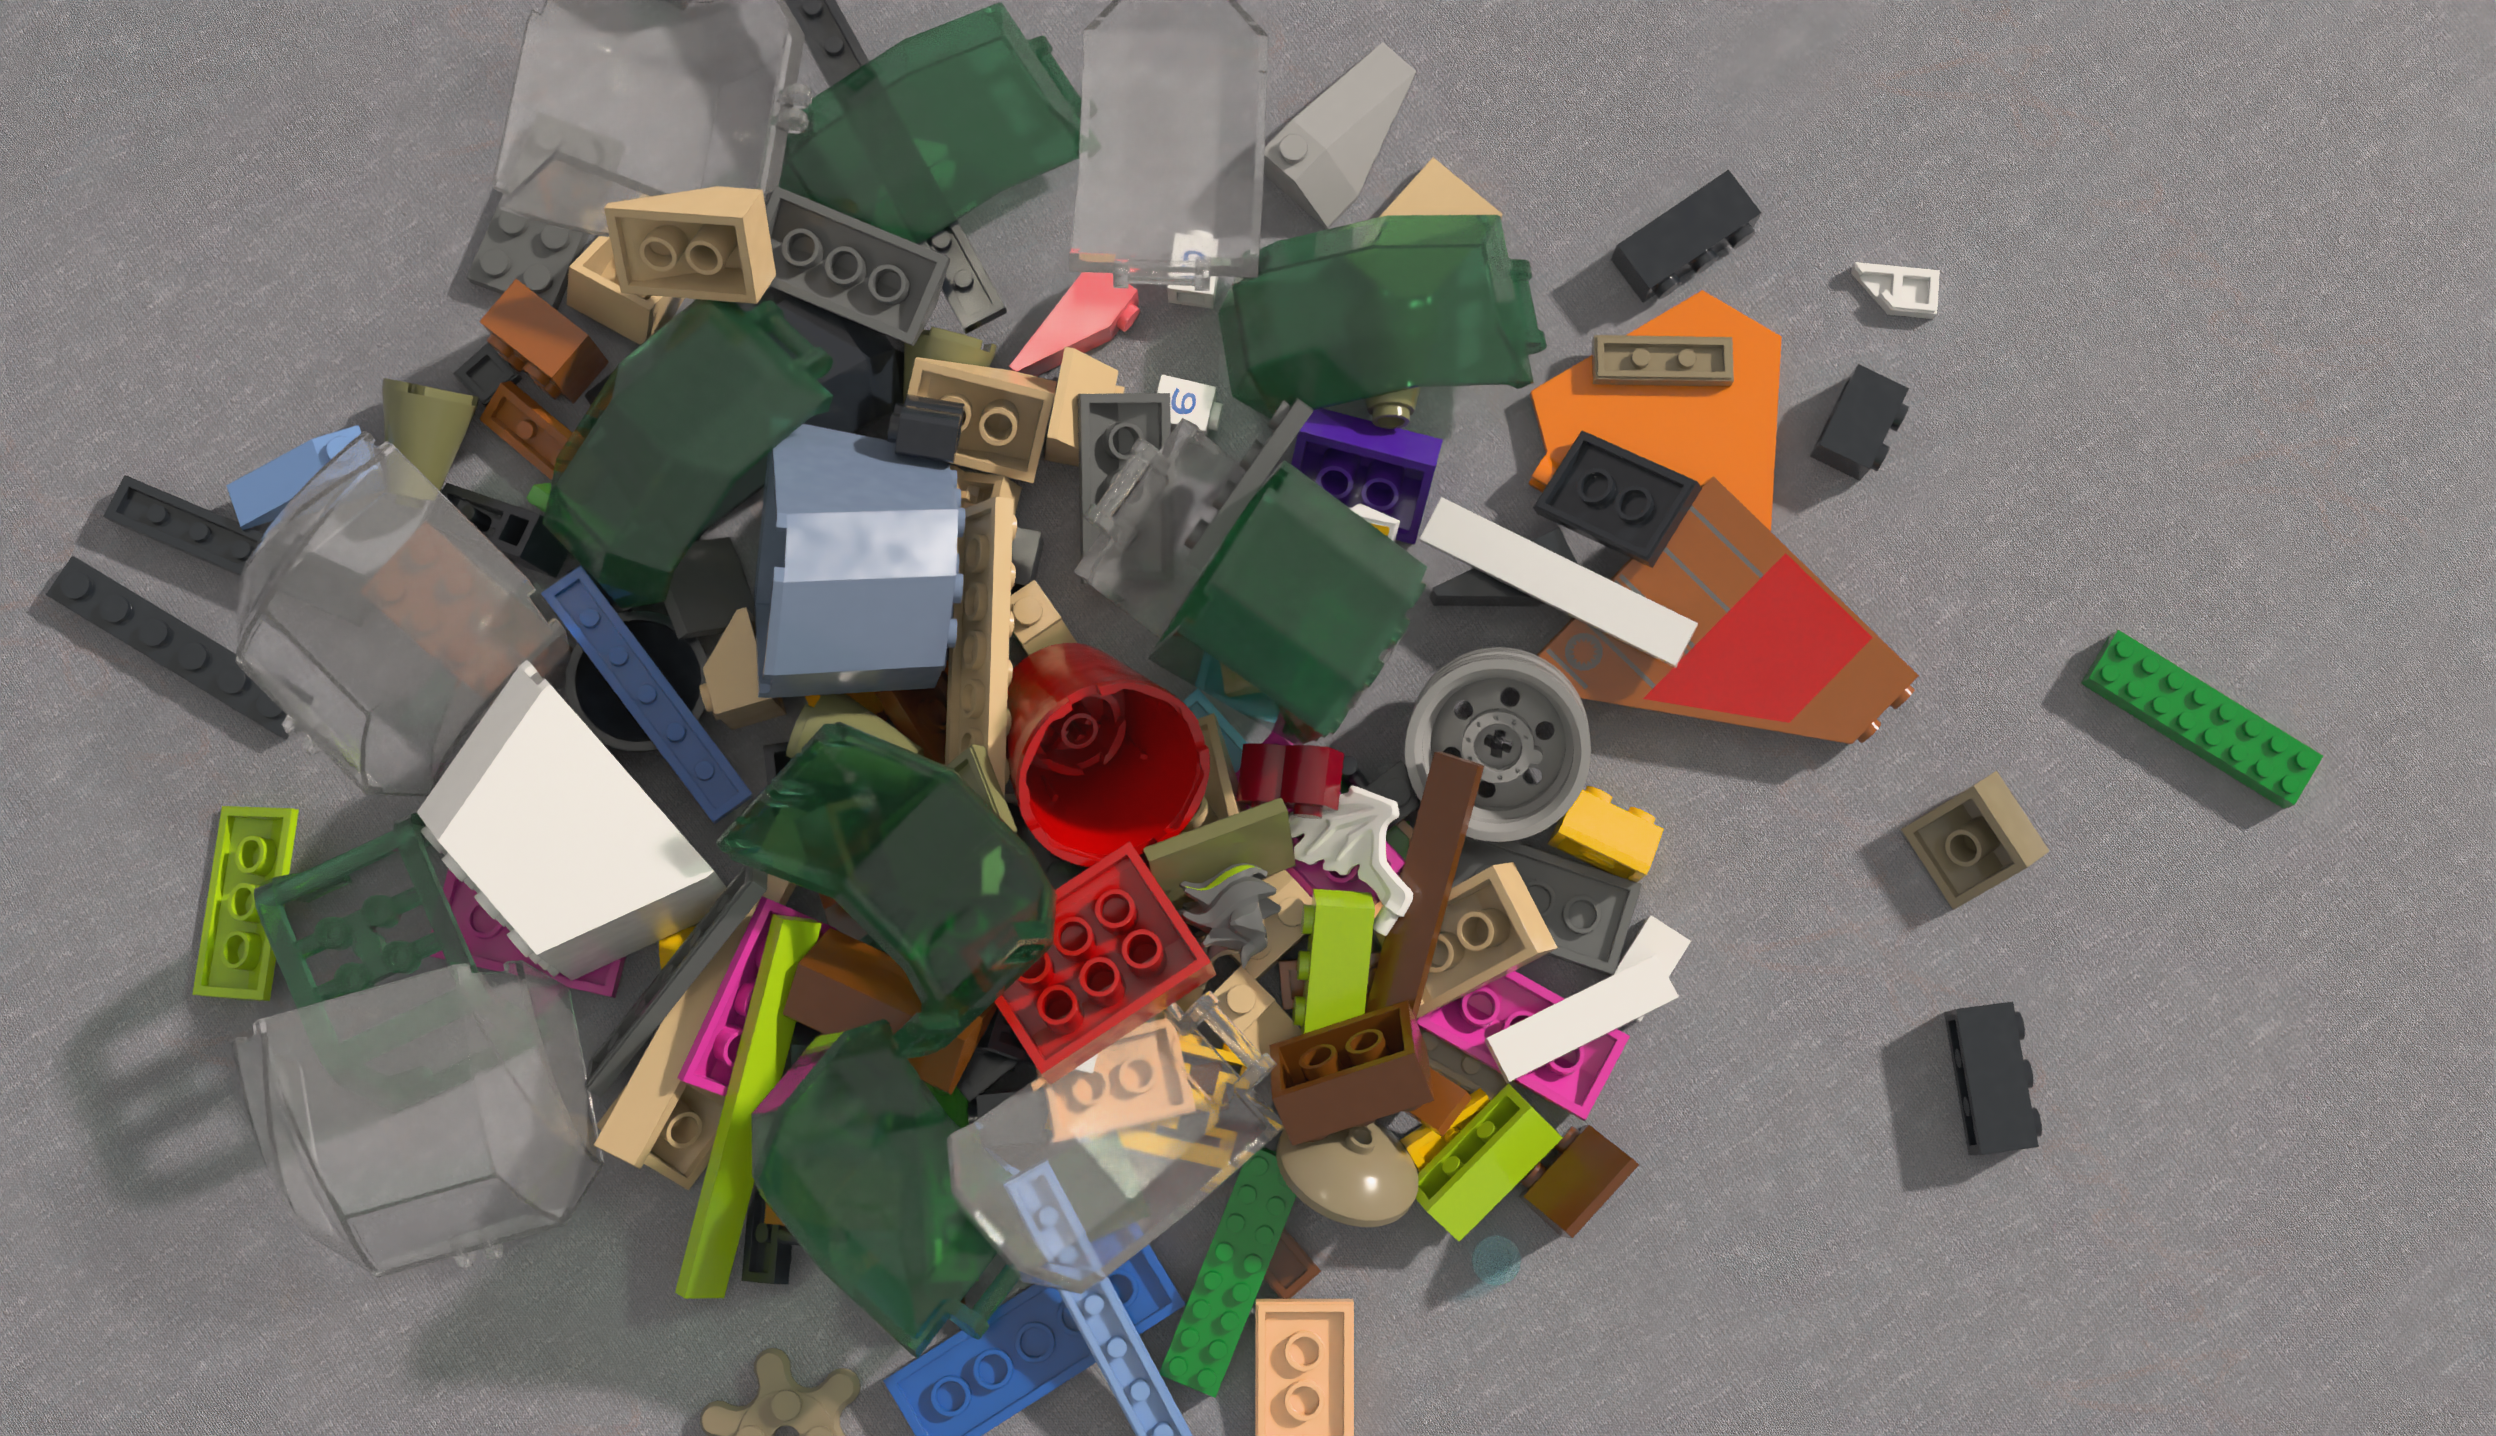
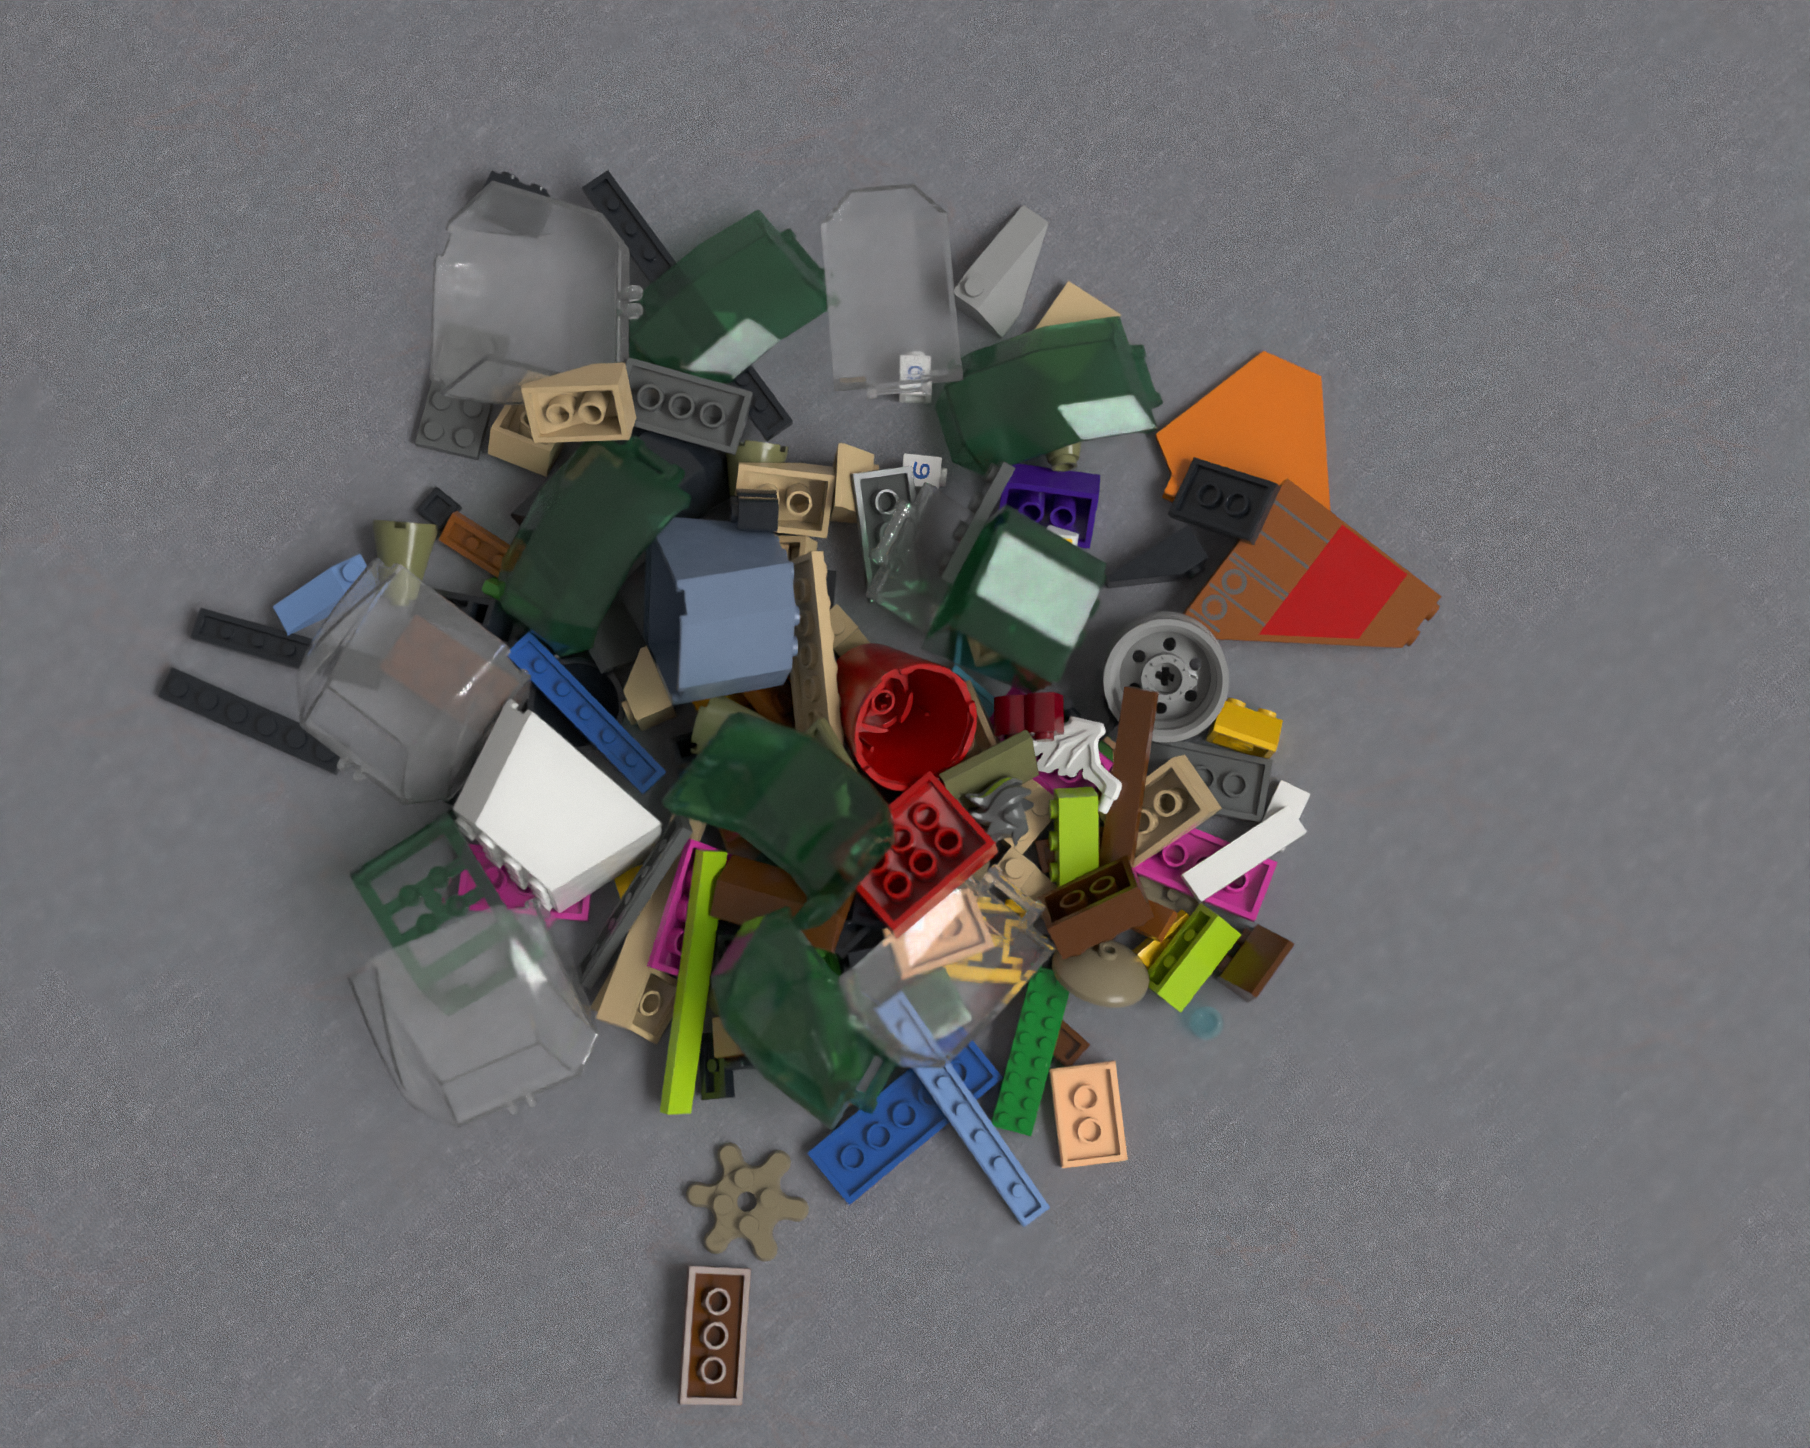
camera: 10 degrees left, 0 degrees up
(234, 948) = (327, 889): lime slope -> none
(542, 343) = (478, 481): dark orange brick -> none
(1081, 320) = (843, 422): coral slope -> none
(1558, 582) = (1191, 562): white tile -> none
(1662, 360) = (1242, 402): dark tan tile -> none
(1687, 237) = (1248, 316): black brick -> none
(1860, 423) = (1382, 428): black brick -> none
(1900, 289) = (1398, 334): white tile -> none
(1975, 840) = (1492, 702): dark tan slope -> none
(1992, 1078) = (1523, 860): black brick -> none
(2202, 719) = (1635, 603): green piece -> none

